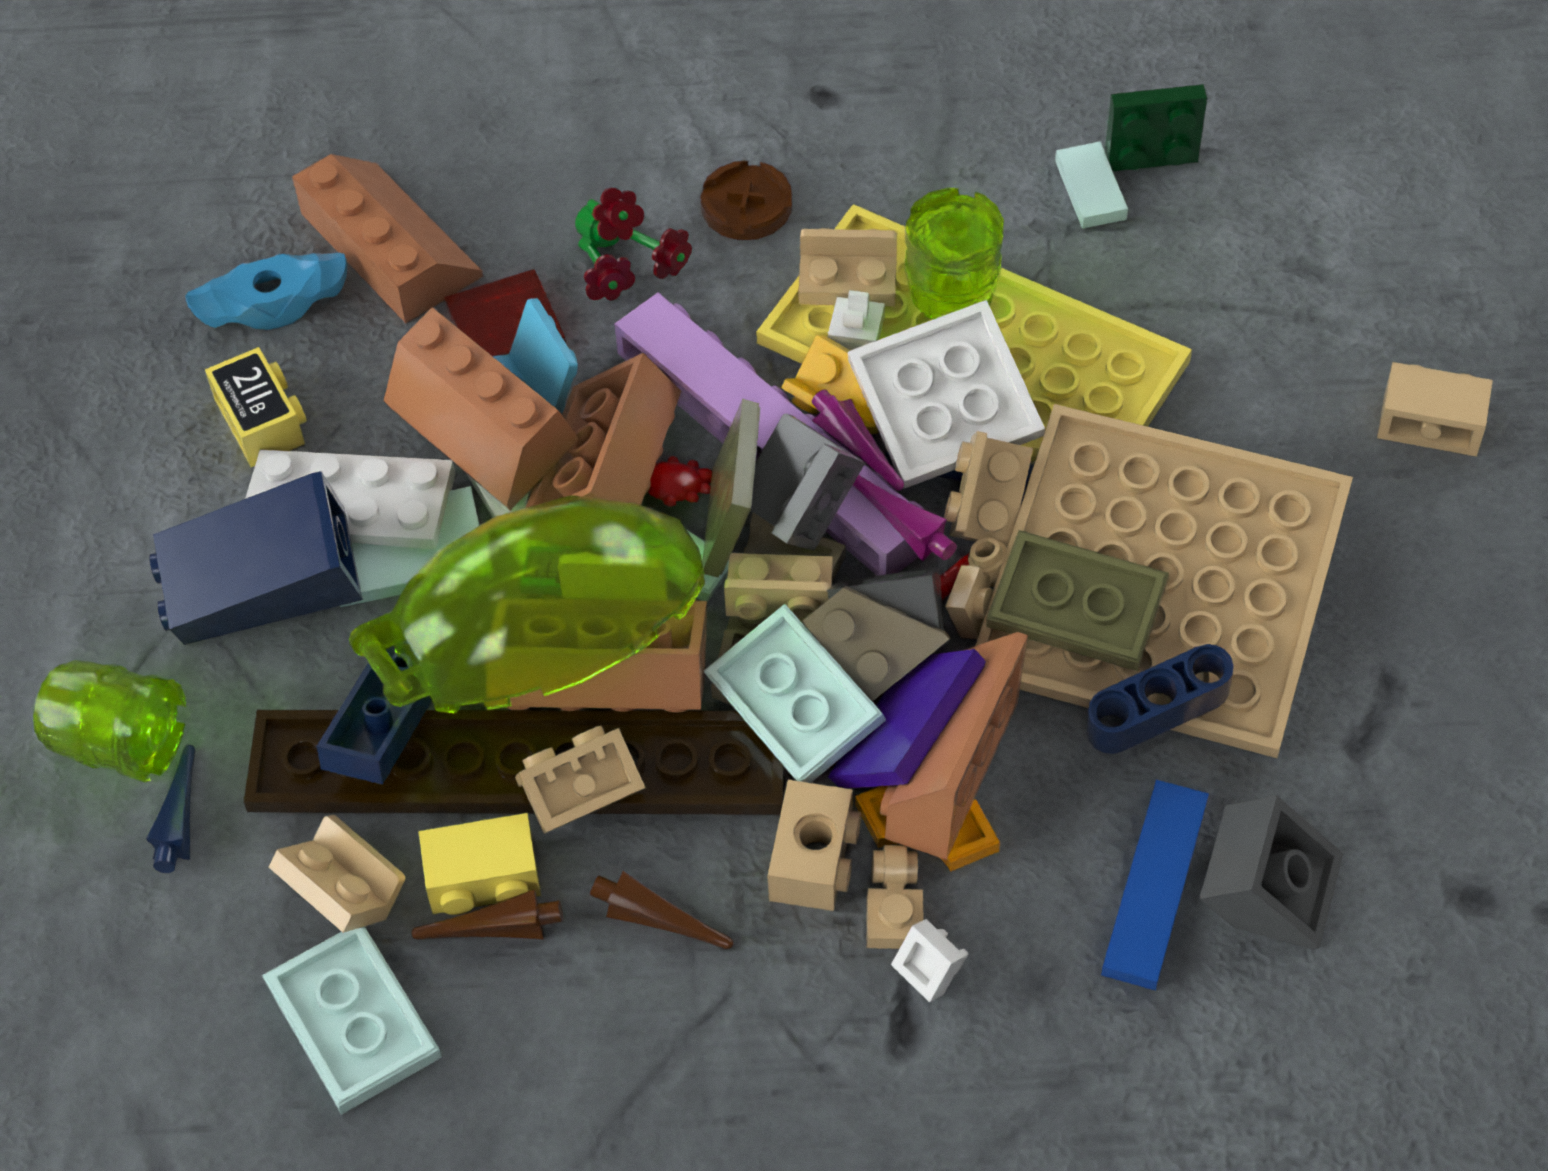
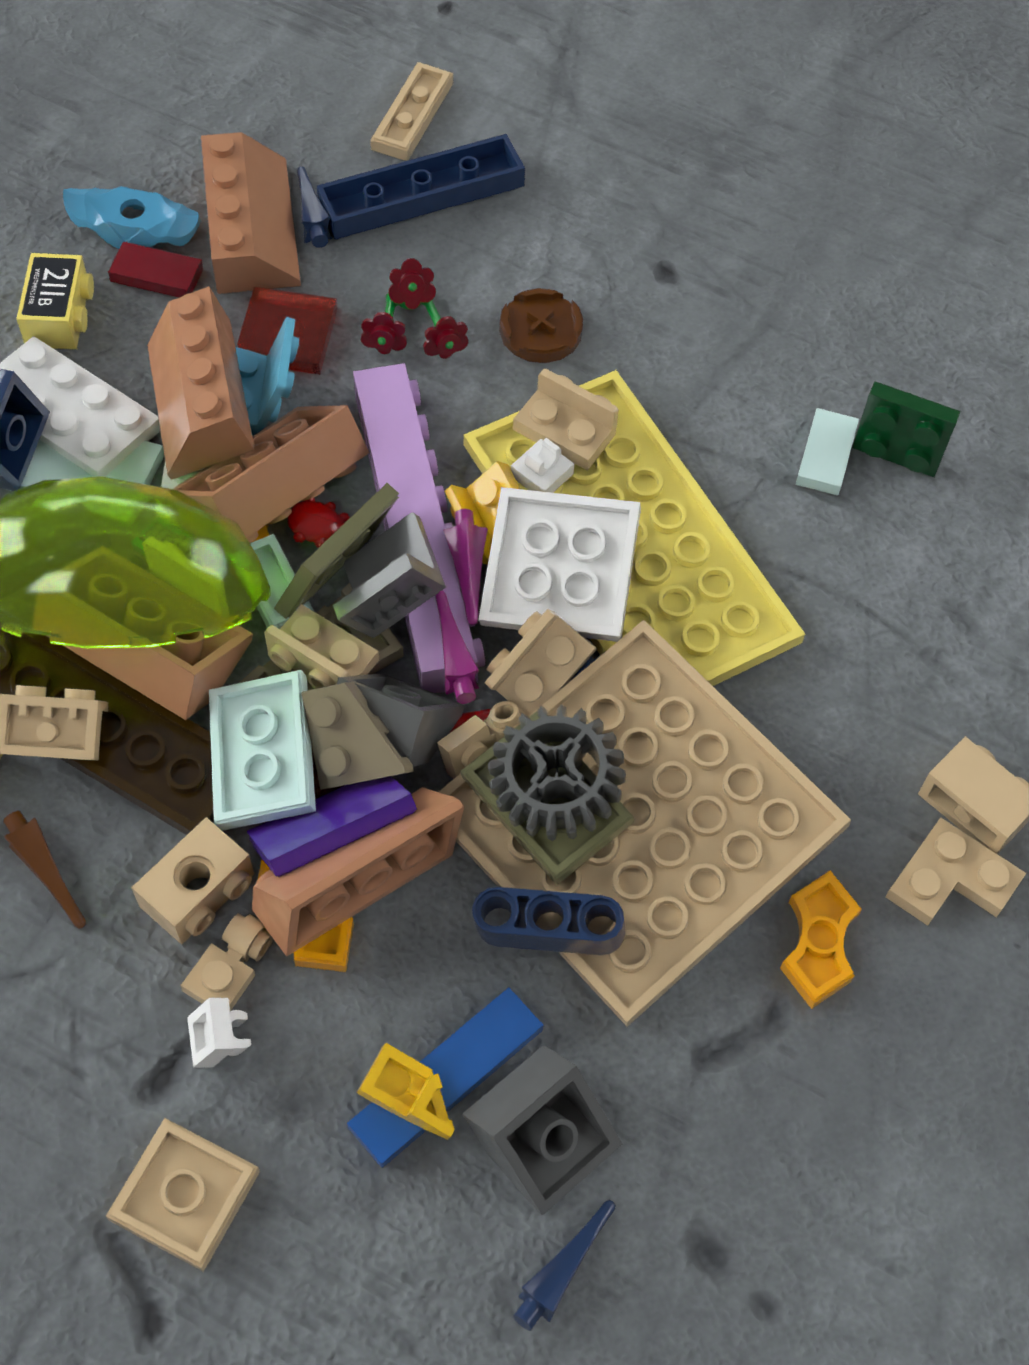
camera: 25 degrees right, 5 degrees up
(330, 330) = (155, 270): none -> dark red tile
(450, 203) = (313, 213): none -> dark blue piece
(467, 60) = (412, 111): none -> tan tile
(534, 126) = (421, 186): none -> dark blue piece
(952, 251) = (646, 448): clear neon green piece -> none
(1002, 1108) = (183, 1194): none -> tan tile
(1043, 555) = (578, 740): none -> dark grey gear
(1138, 908) = (407, 1091): none -> yellow slope
(1370, 994) = (548, 1286): none -> dark blue piece
(1394, 614) = (819, 961): none -> light orange tile
(1447, 477) = (957, 862): none -> tan plate

